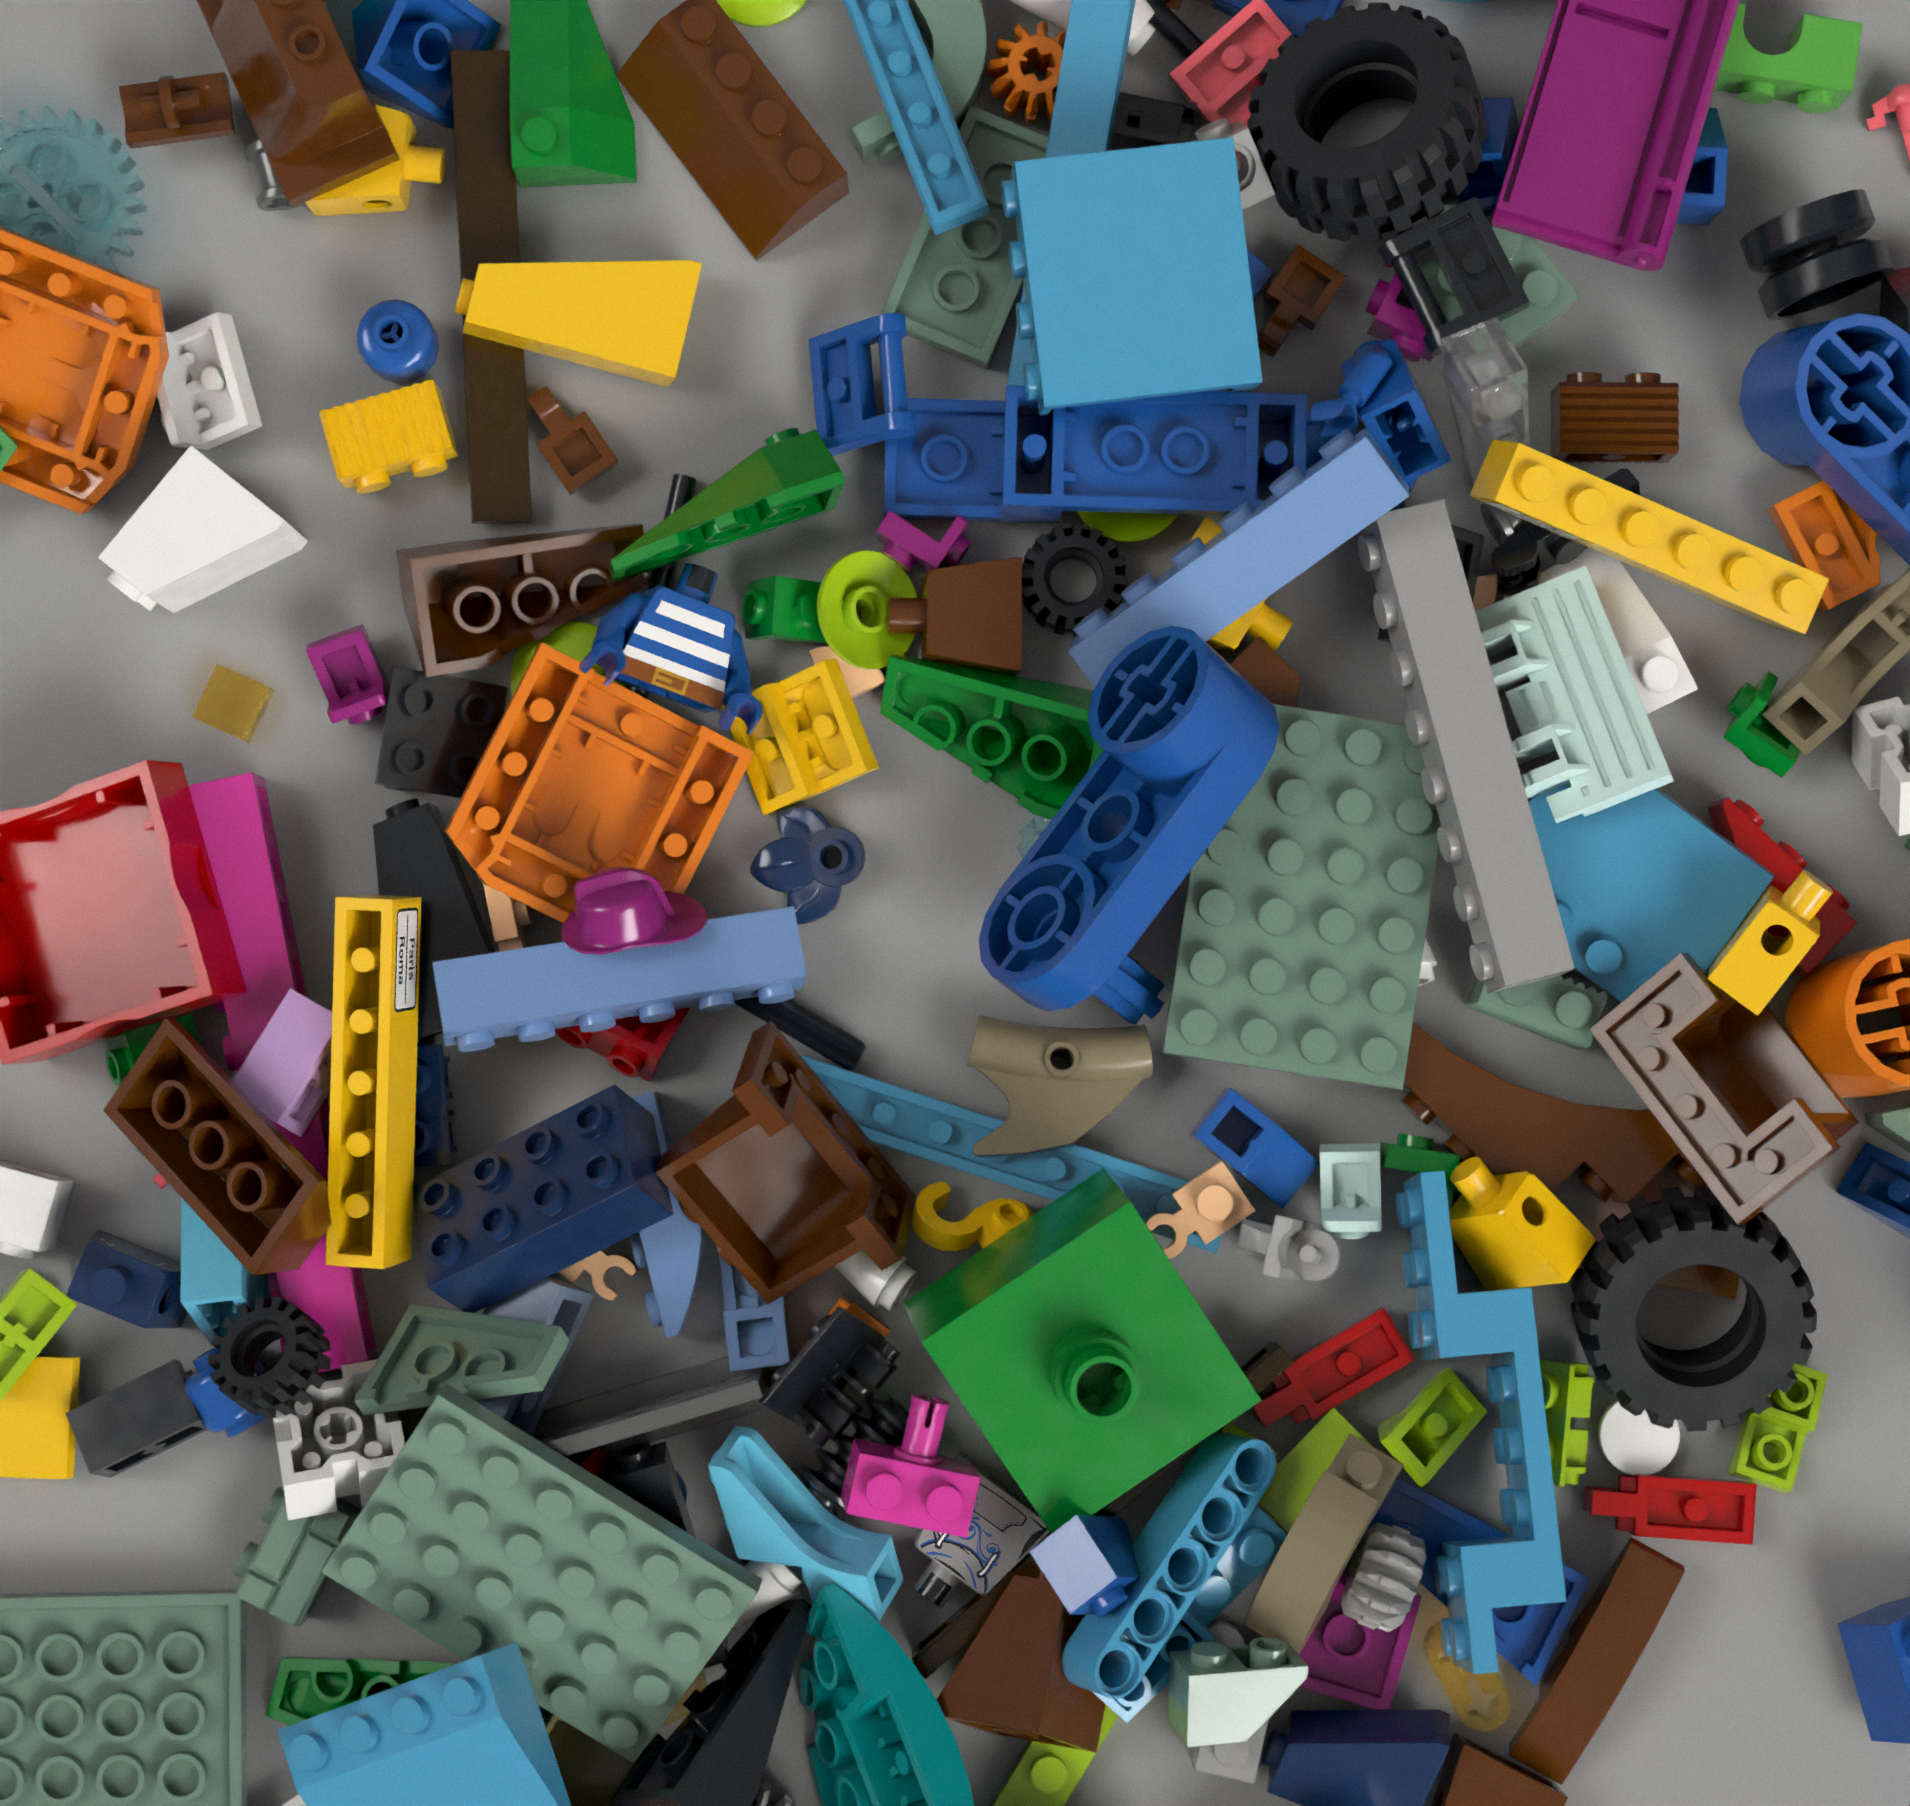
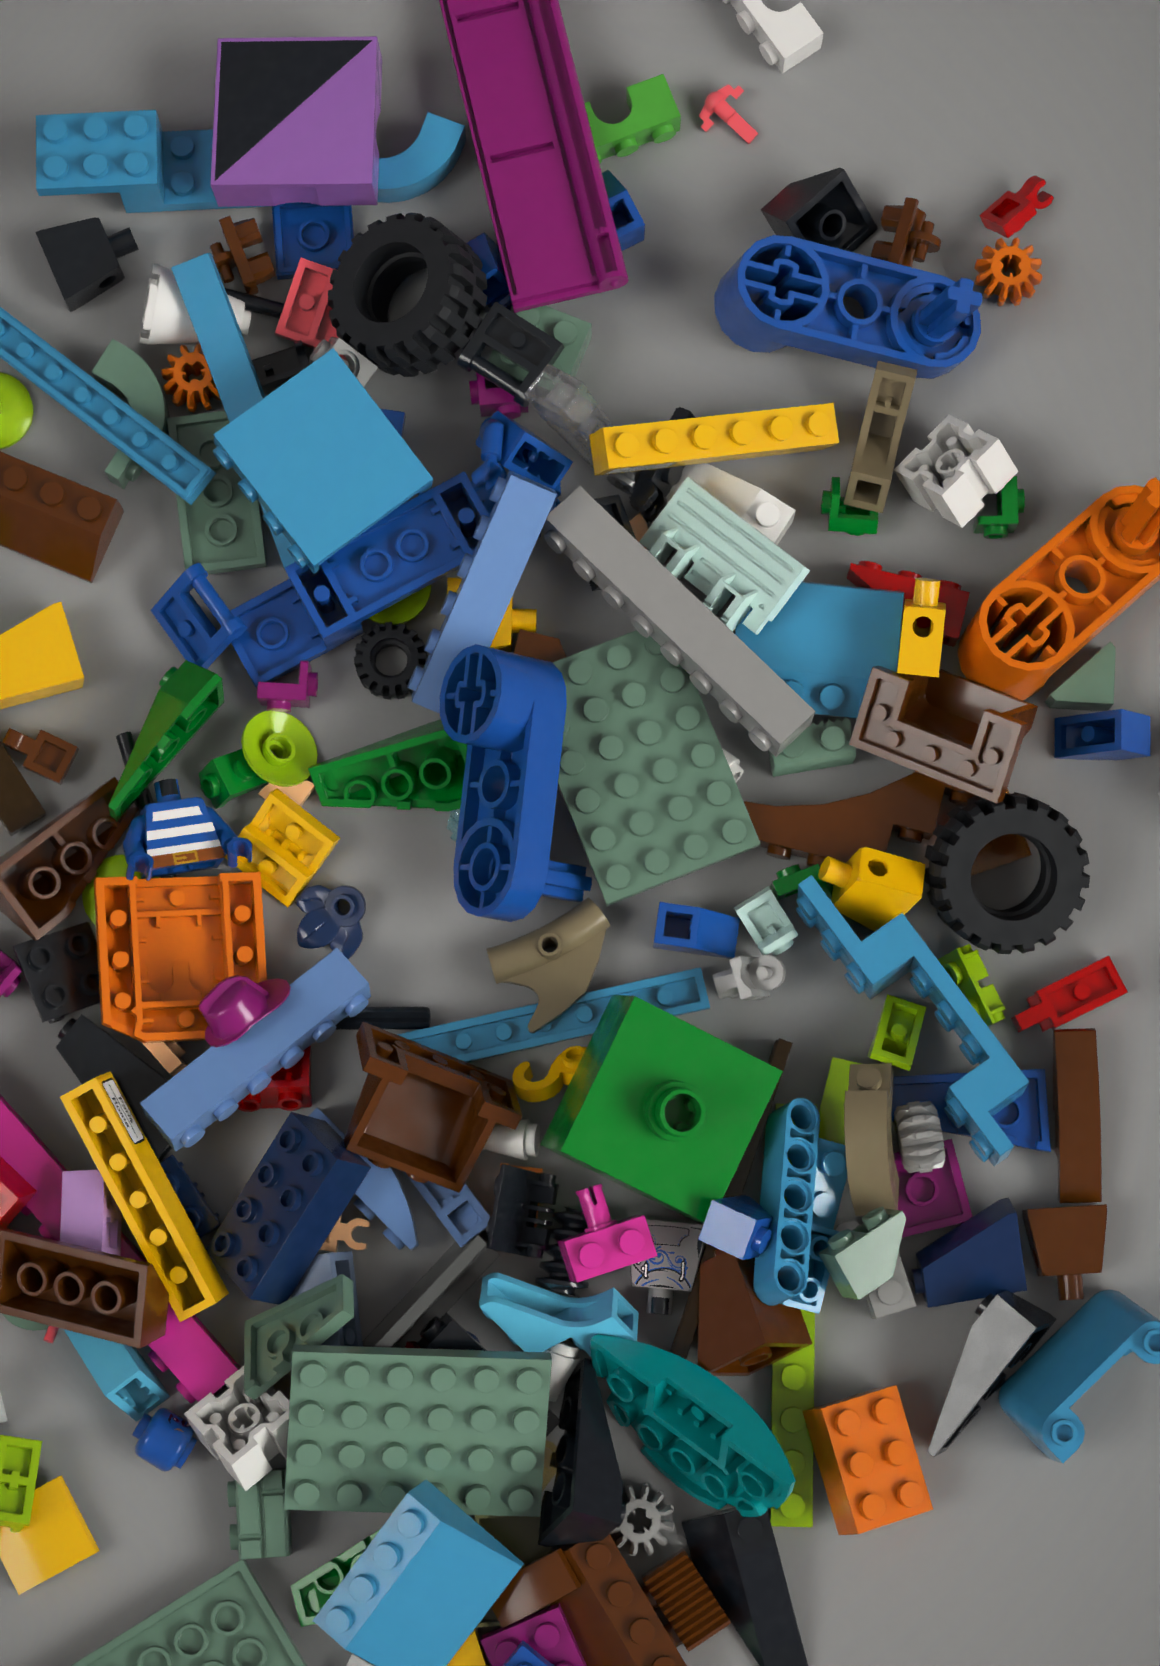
camera: 25 degrees left, 5 degrees down
(128, 1282) = (68, 1409): dark blue torso -> none
(136, 1420) = (119, 1491): black hinge -> none
(291, 1374) = (159, 1394): black tyre -> none
(966, 615) = (340, 717): reddish brown torso -> none
(1207, 1205) = (687, 982): light nougat plate -> none
(1299, 294) = (427, 415): reddish brown plate -> none
(1335, 1370) = (821, 1035): red hinge -> none
(1457, 1691) = (1005, 1182): clear yellow beam -> none
(1614, 419) = (655, 383): reddish brown brick -> none
(1634, 1442) = (1024, 972): white piece -> none
(1774, 1440) = (1103, 916): lime slope -> none
(1816, 254) = (715, 221): black wheel -> none
(1830, 541) = (823, 381): orange wing -> none

